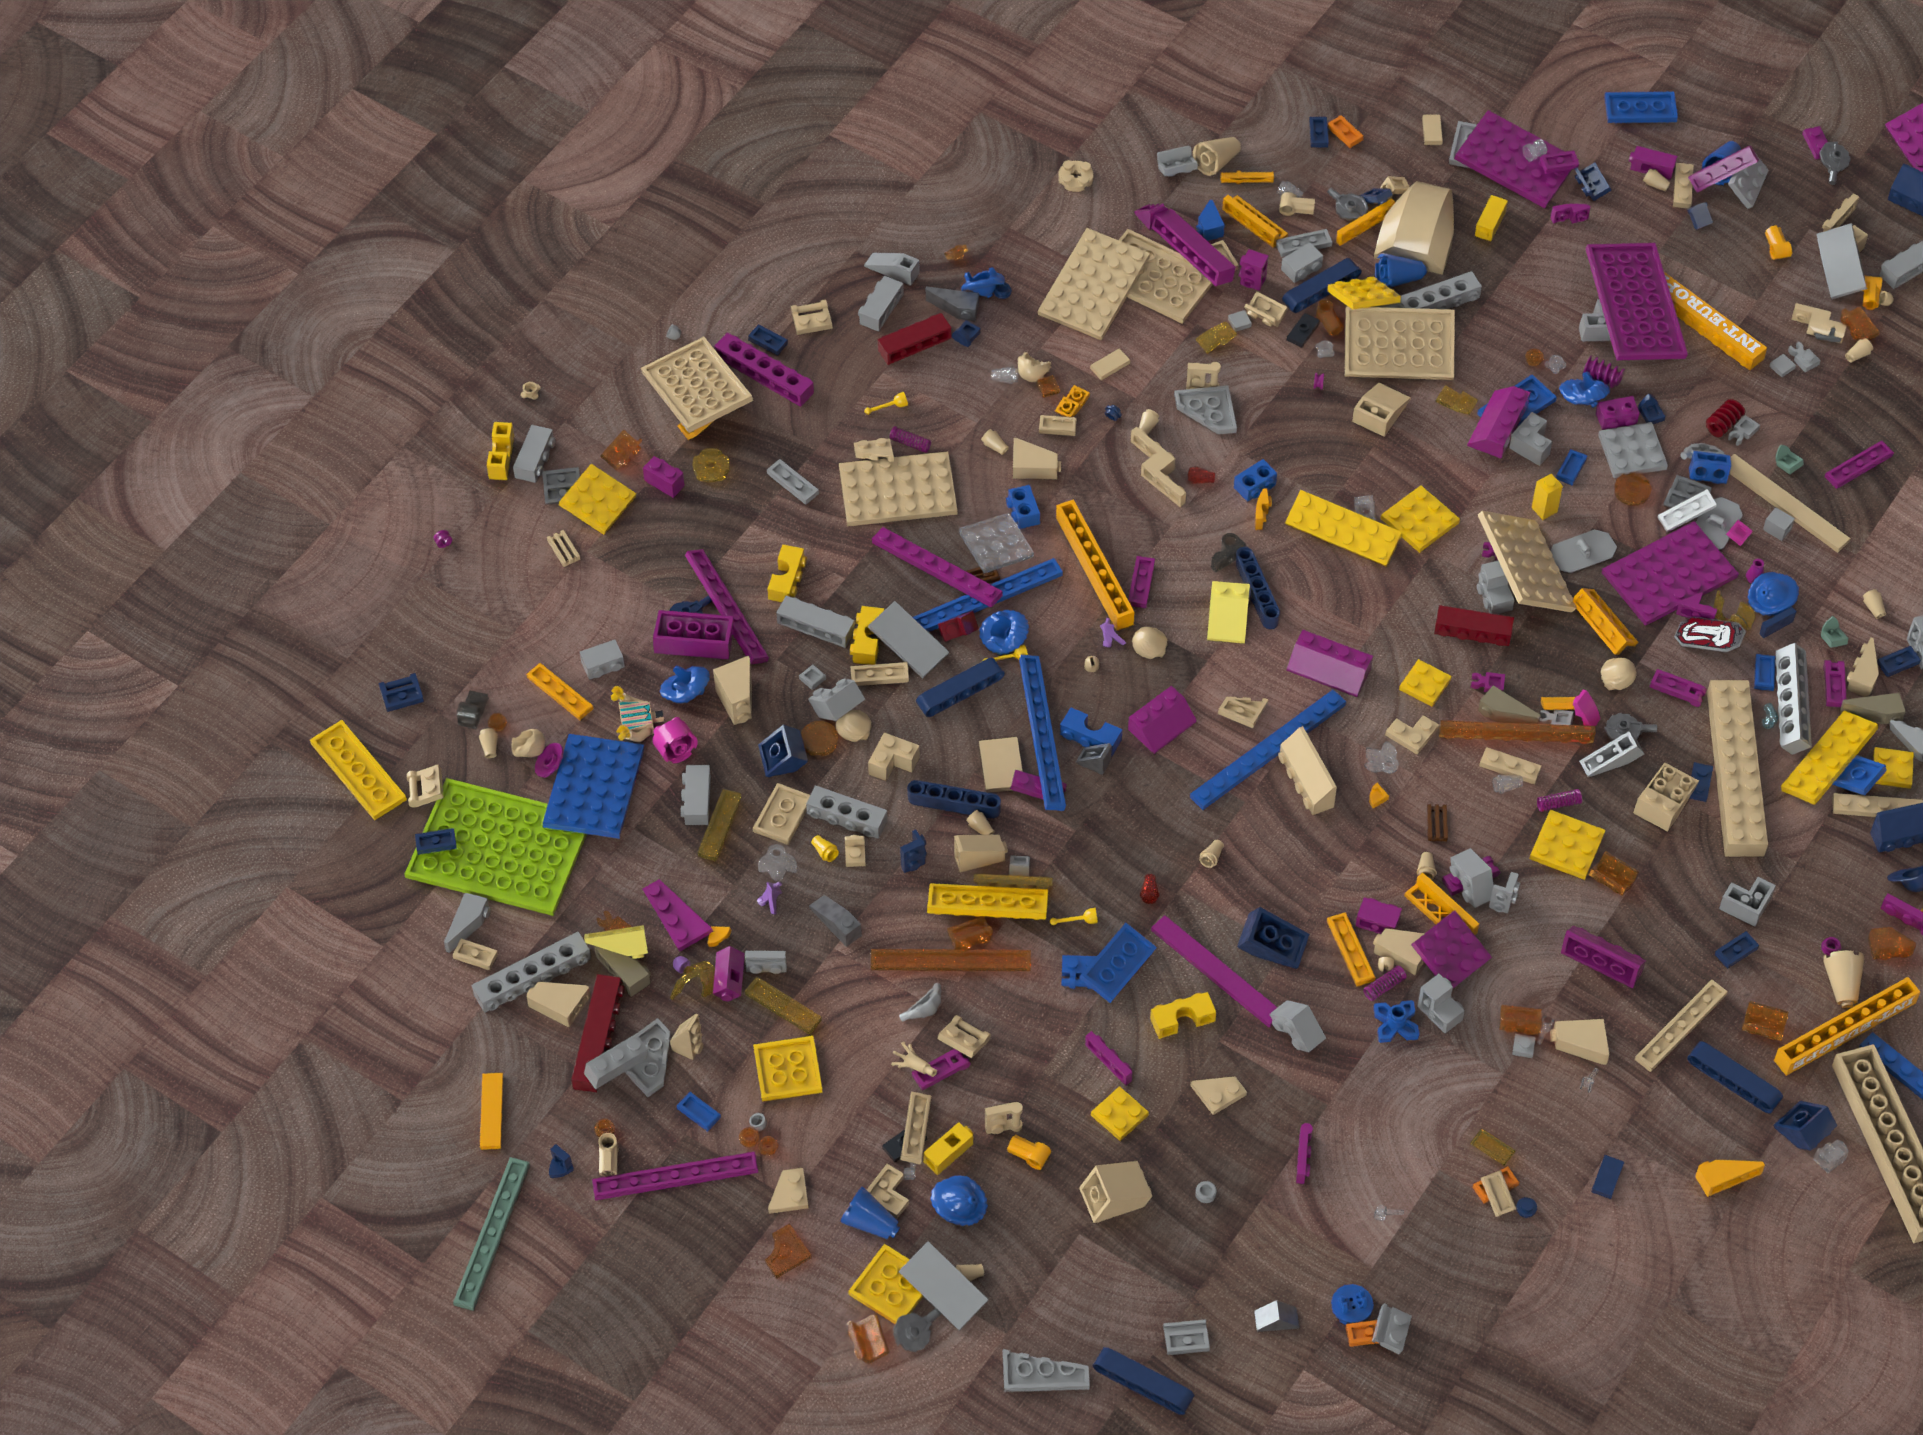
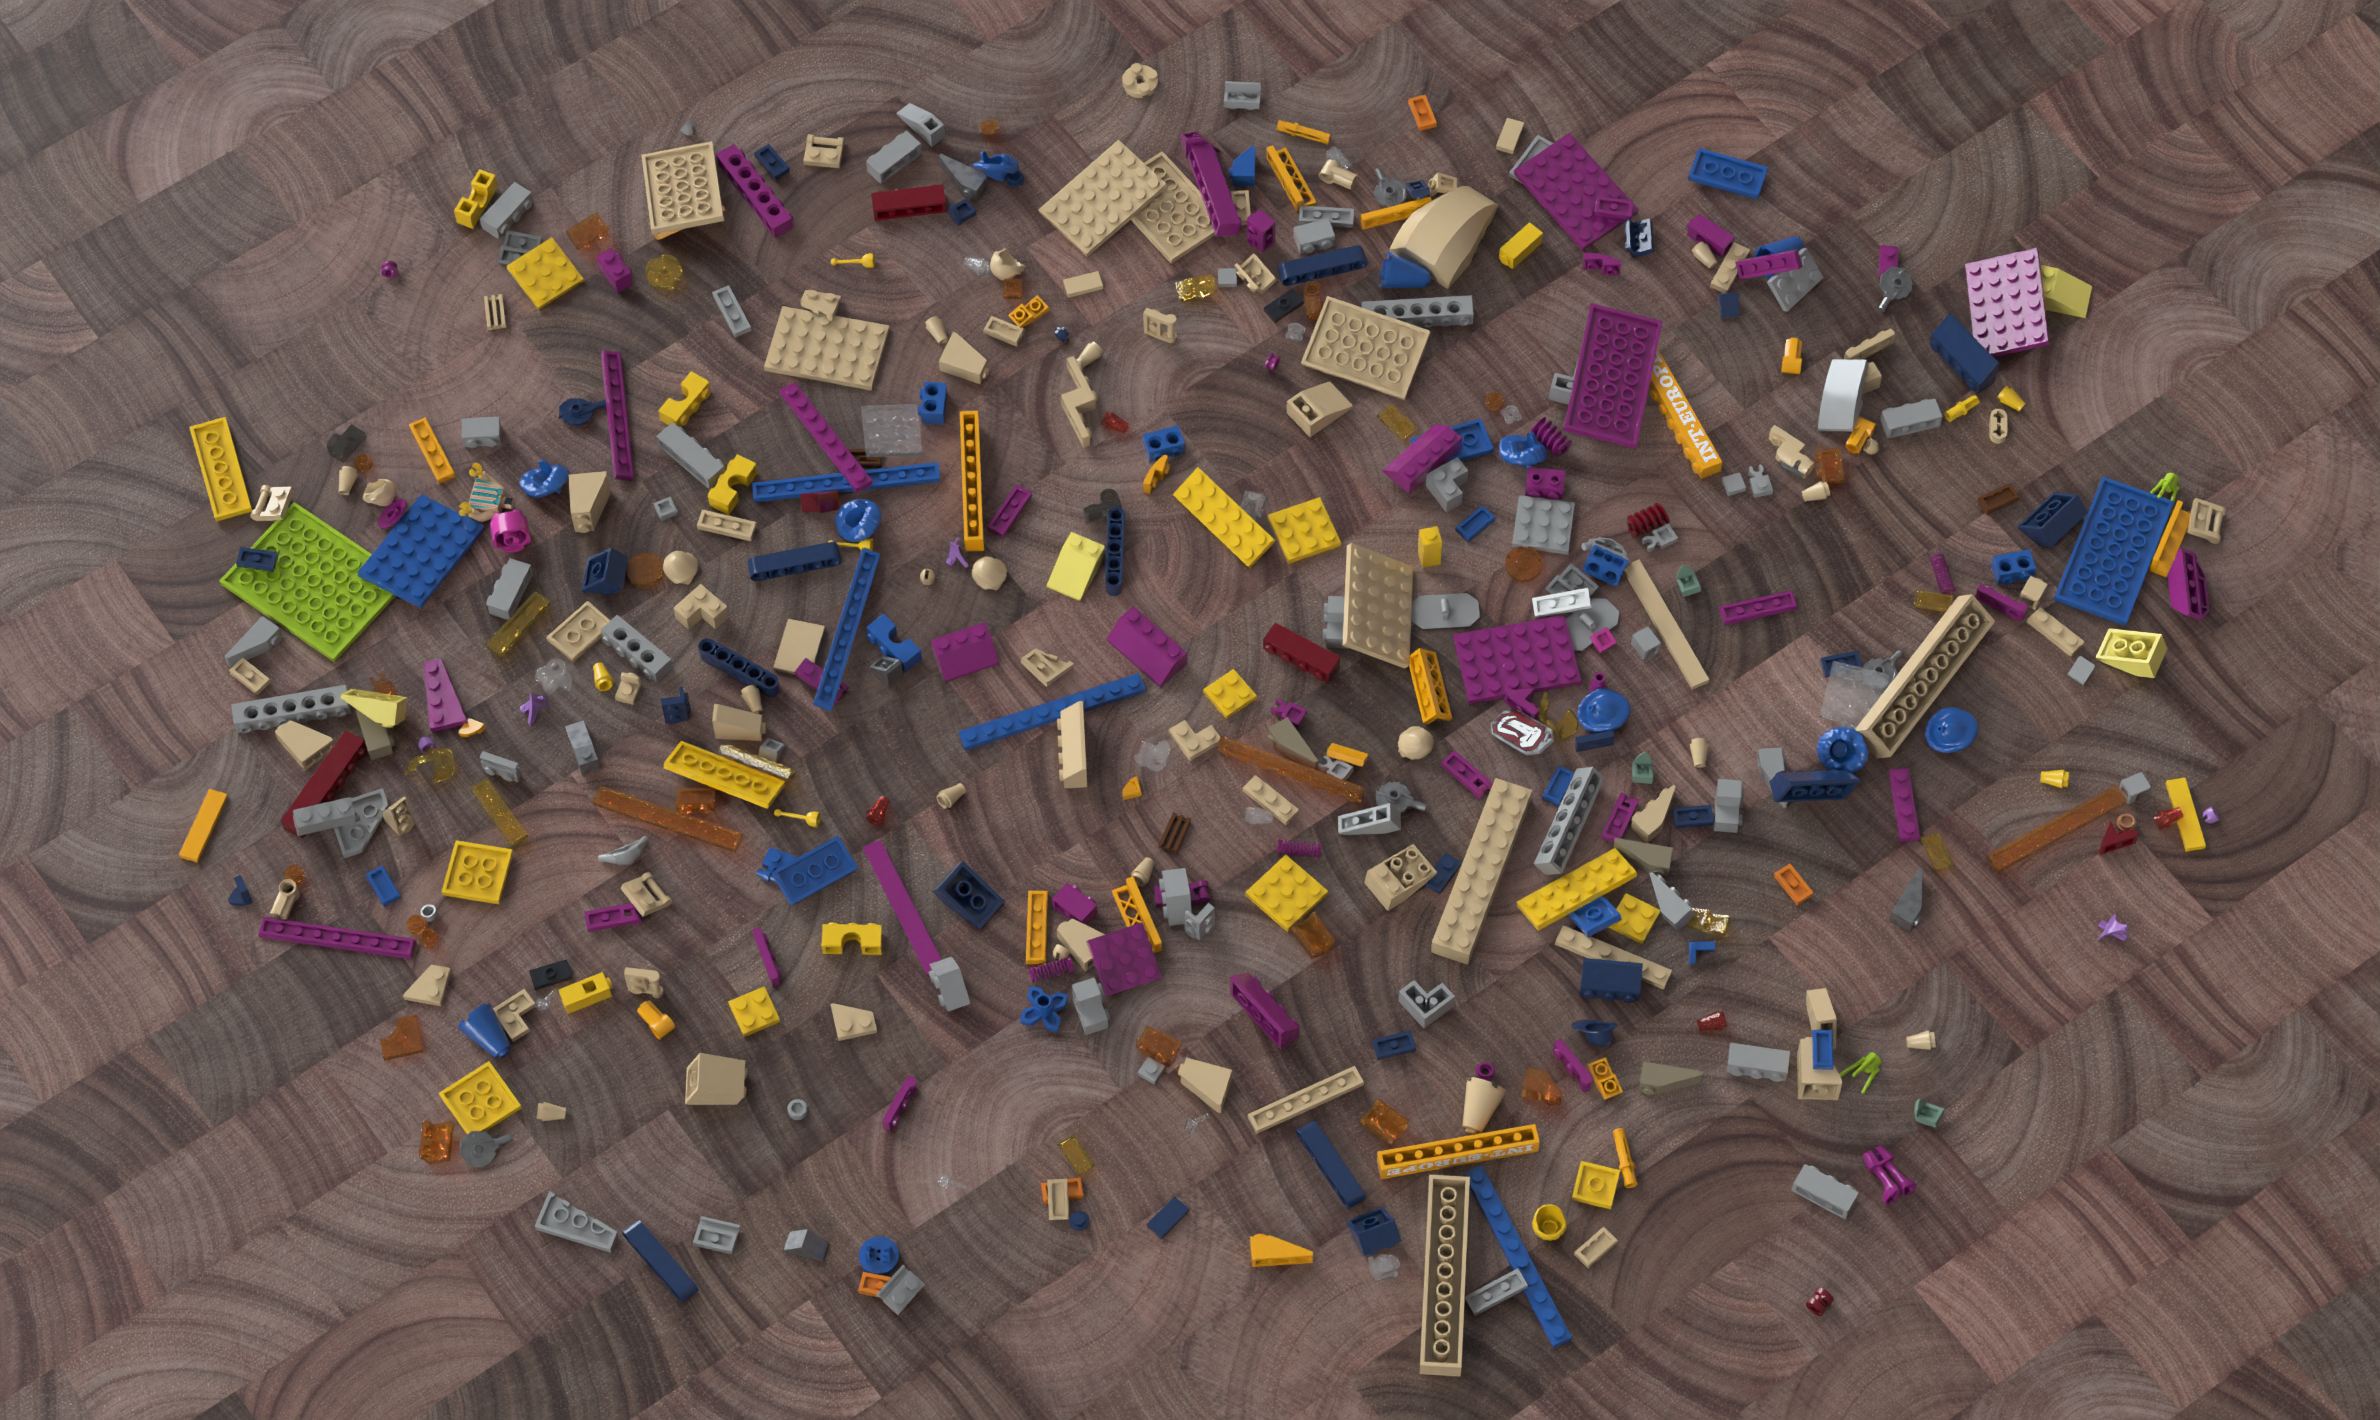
camera: 20 degrees right, 5 degrees up
(401, 696) = (289, 410): dark blue plate -> none
(491, 1234) = (156, 937): sand green tile -> none
(530, 386) = (531, 142): tan plate -> none
(693, 634) = (572, 433): magenta slope -> none
(728, 974) = (462, 767): magenta brick -> none
(836, 702) = (672, 539): light grey brick -> none
(893, 434) = (855, 298): magenta piece -> none
(908, 639) = (766, 500): light grey tile -> none
(913, 1061) = (588, 903): tan piece -> none
(915, 1128) = (564, 964): tan tile -> none
(943, 1285) = (521, 1116): light grey tile -> none
(959, 1200) = (572, 1044): blue piece -> none
(1209, 407) = (1155, 356): light grey plate -> none
(1215, 154) = (1283, 99): tan cone -> none
(1318, 132) = (1396, 105): dark blue plate -> none
(1364, 293) = (1354, 286): yellow plate -> none
(1534, 150) = (1593, 188): clear wheel -> none
(1586, 708) = (1364, 769): dark pink slope -> none
(1651, 410) = (1581, 490): dark blue tile -> none
(1771, 718) = (1539, 835): clear light blue arm -> none

